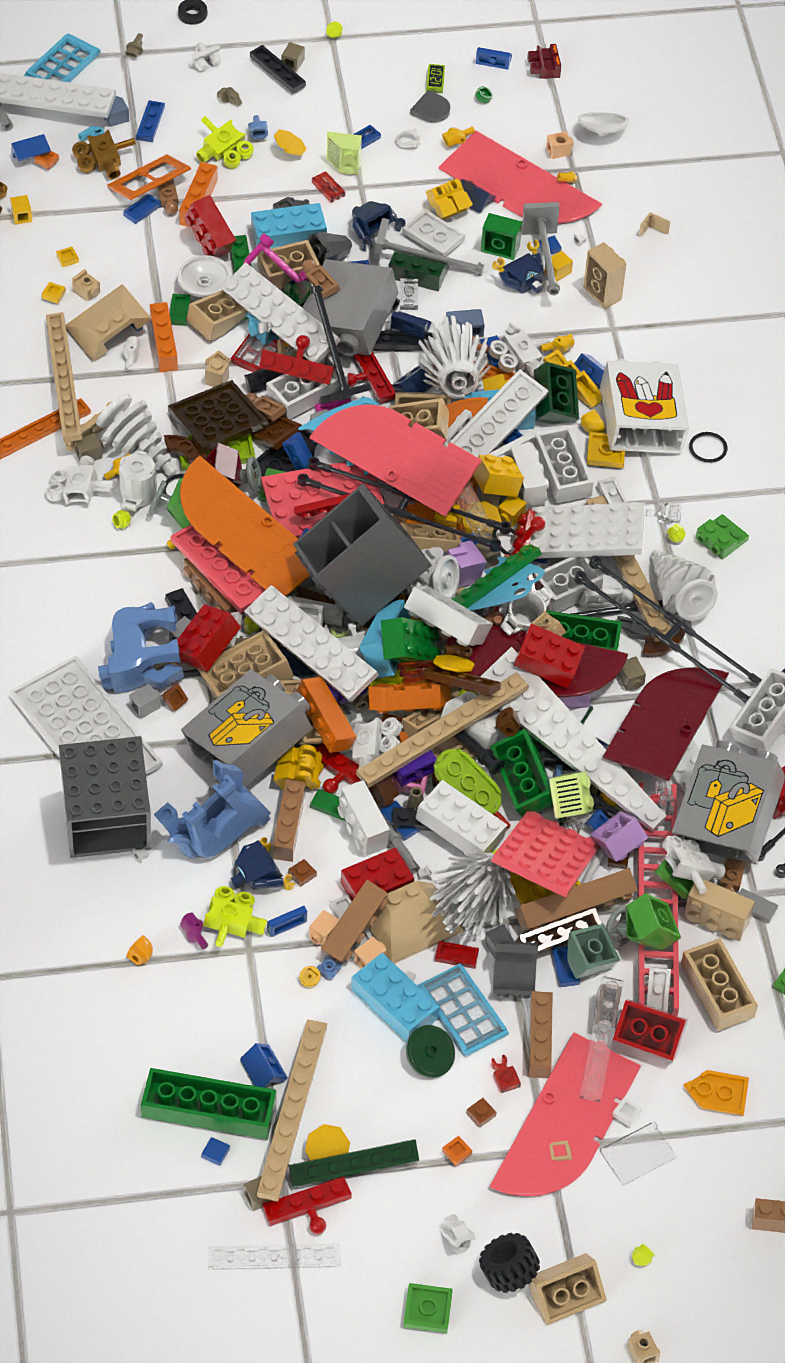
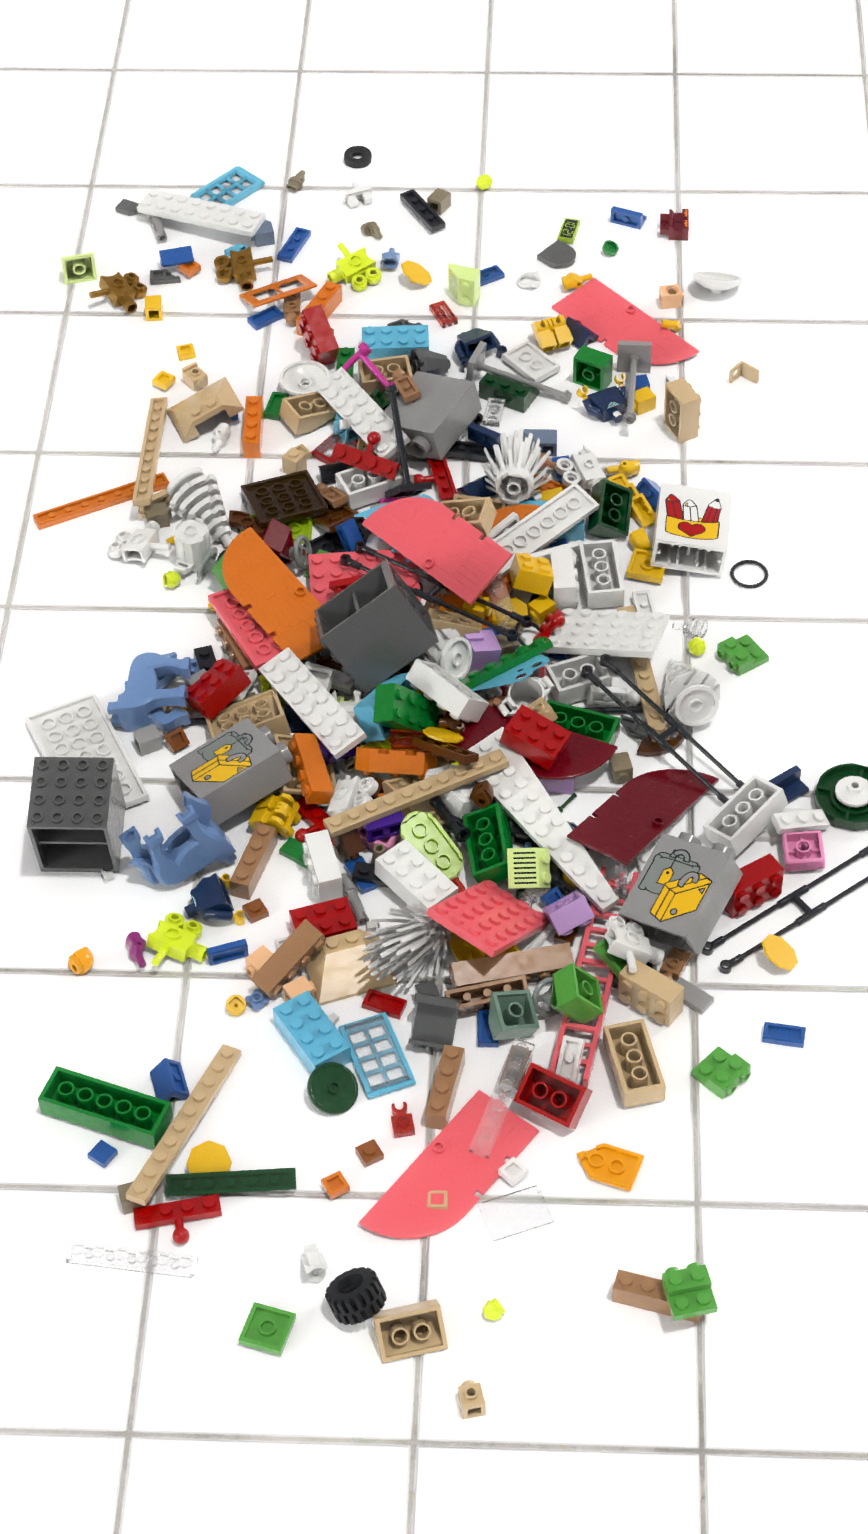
camera: 15 degrees right, 5 degrees down
(20, 171) = (163, 276): none -> dark grey tile

